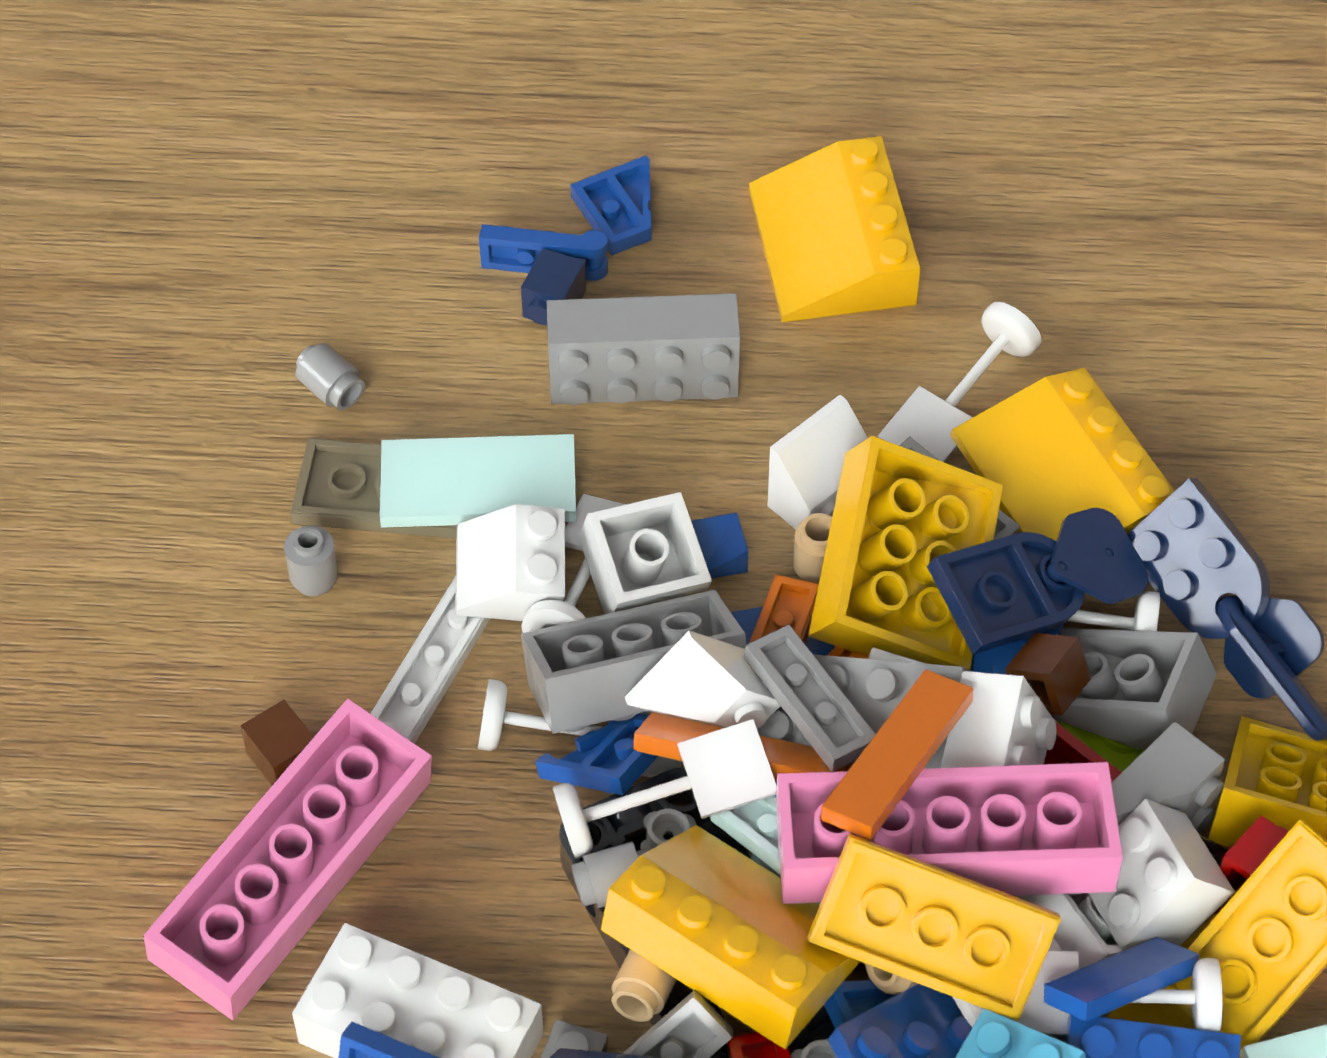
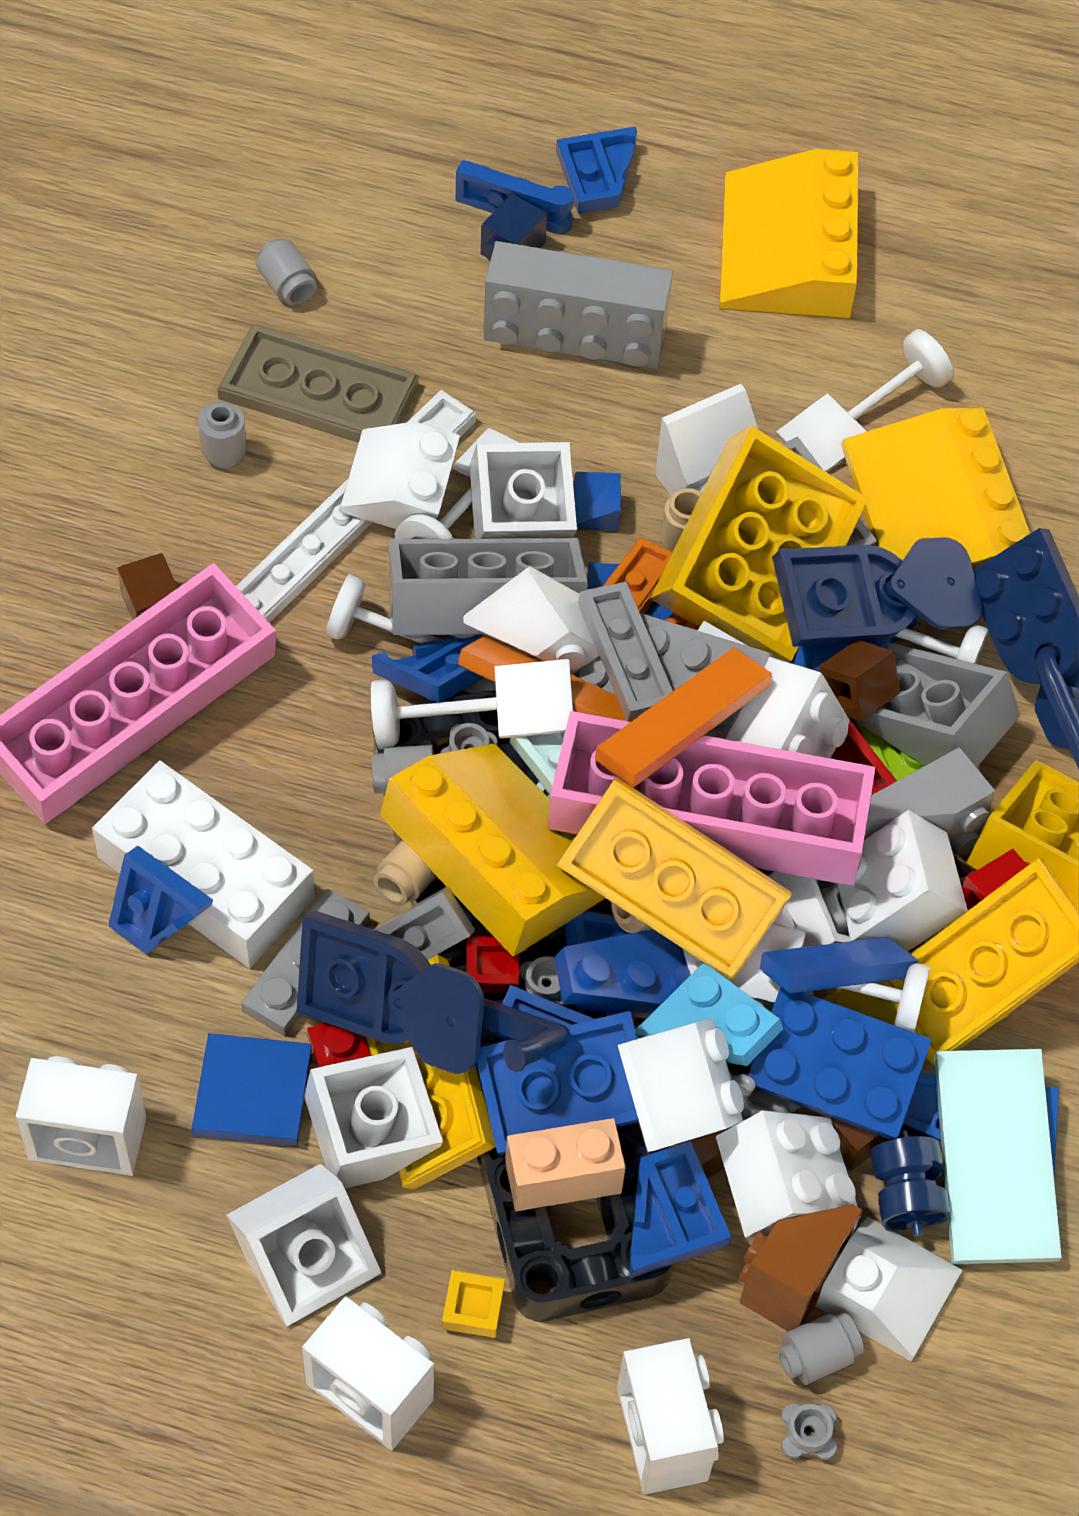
camera: 10 degrees right, 5 degrees up
(472, 476) = (382, 388): light aqua tile -> none

